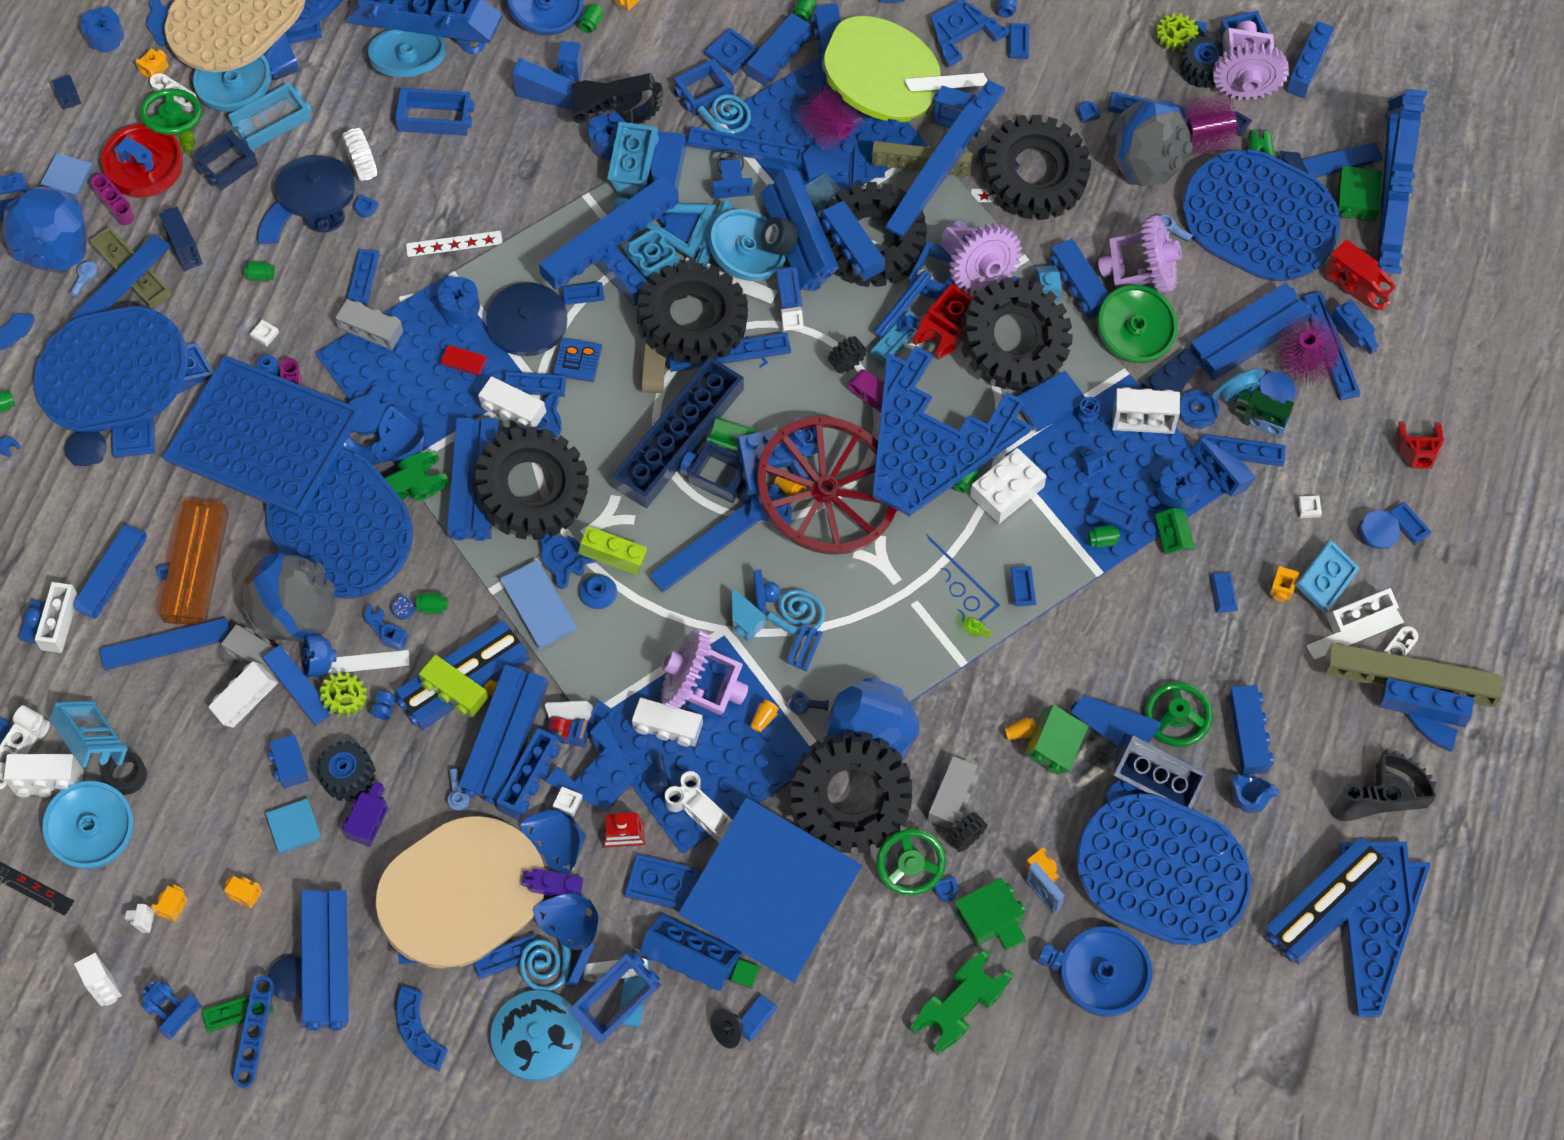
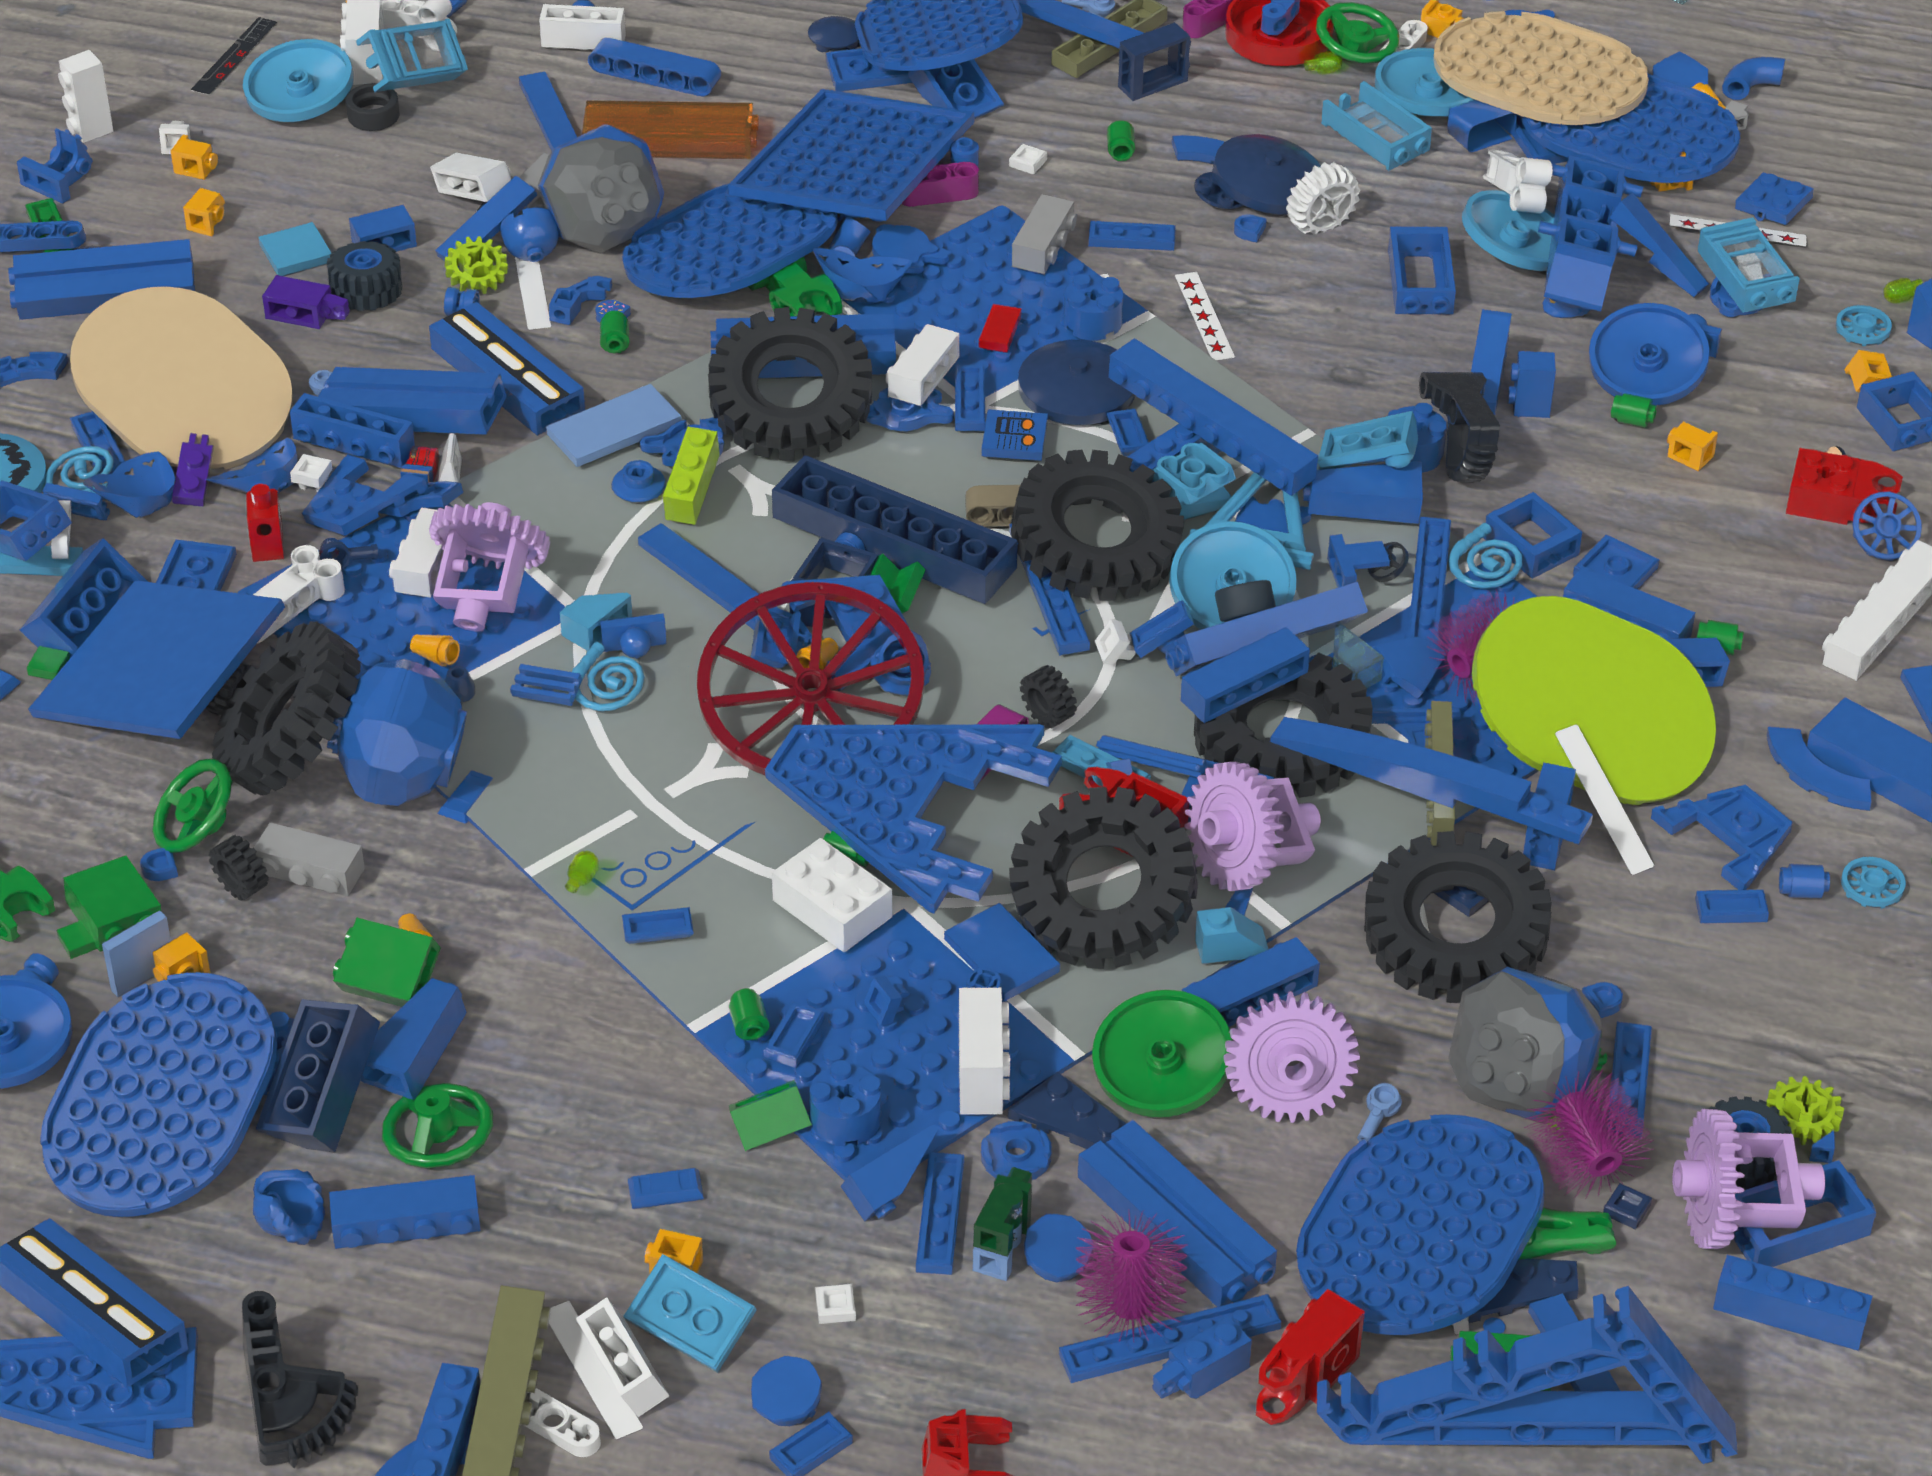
camera: 85 degrees right, 20 degrees down
(216, 149) = (1299, 77): dark blue window -> none
(359, 40) = (1521, 178): none -> white piece
(453, 686) = (475, 338): lime brick -> none
(1232, 388) = (1047, 1175): dark azure wheel -> none

